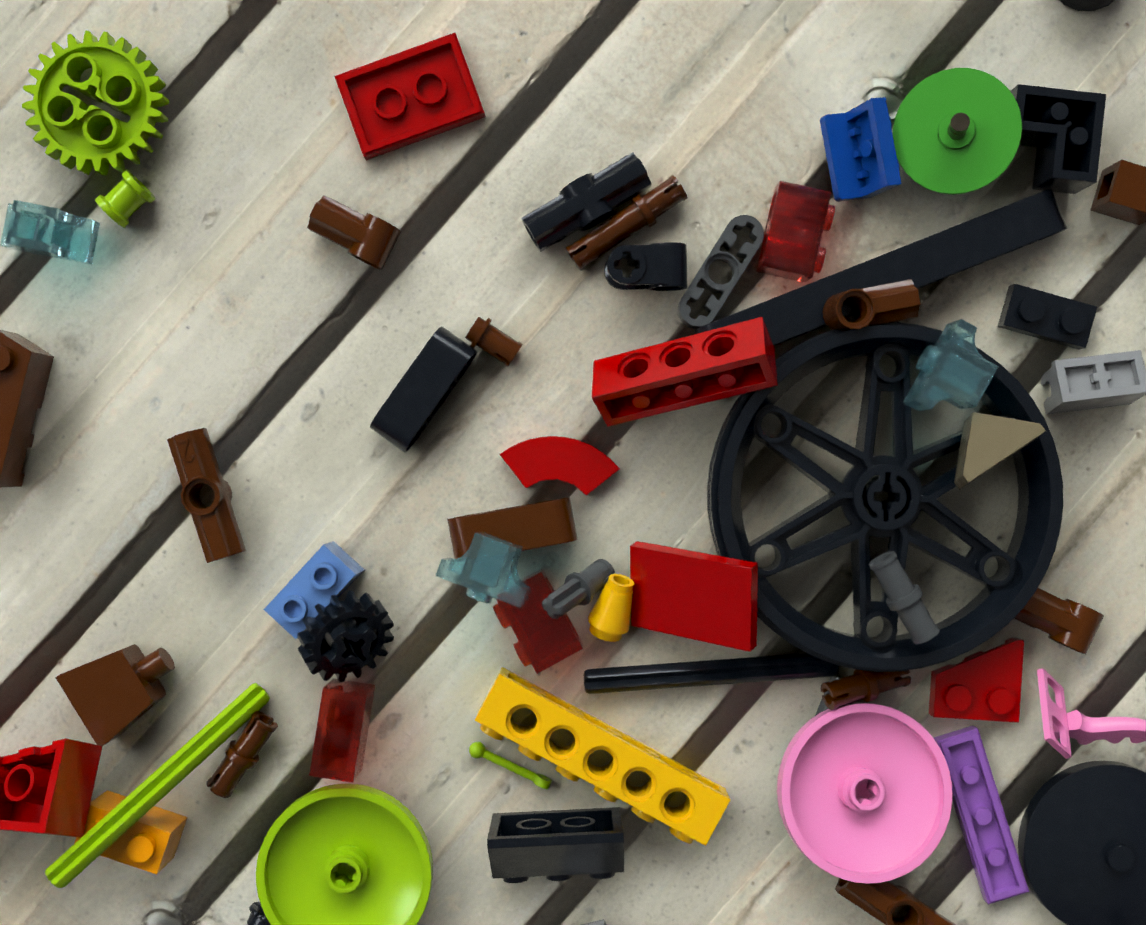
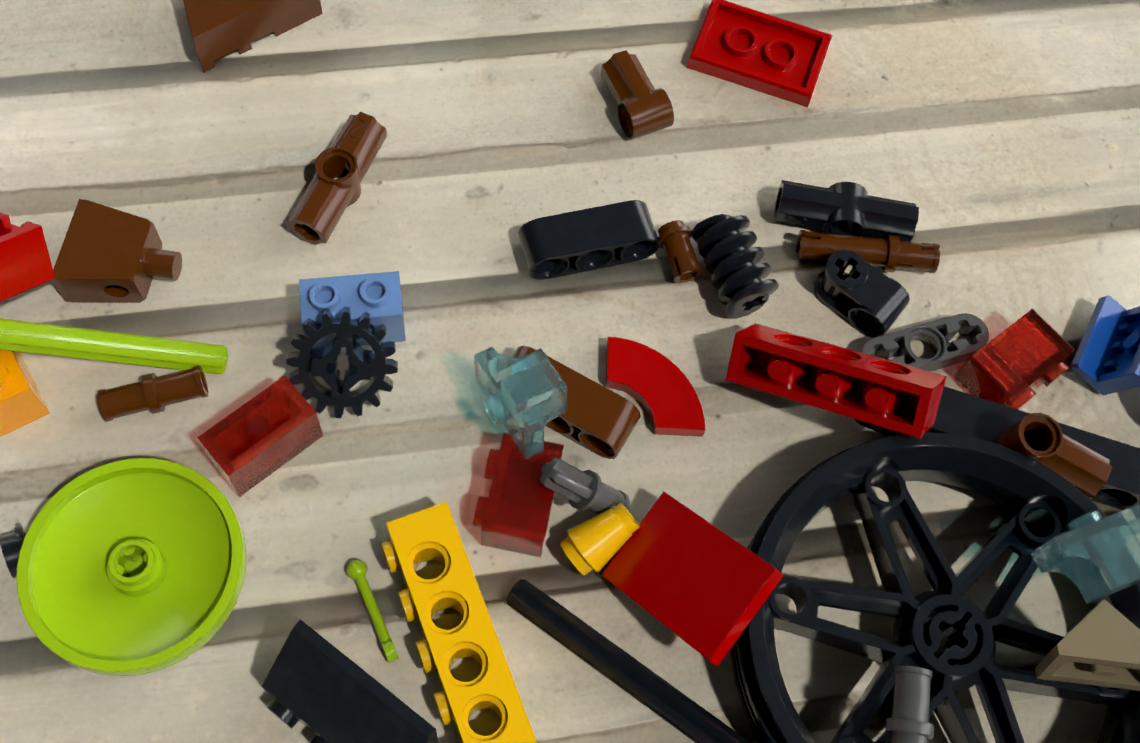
camera: 35 degrees right, 25 degrees down
(542, 321) = (733, 263): none -> black piece

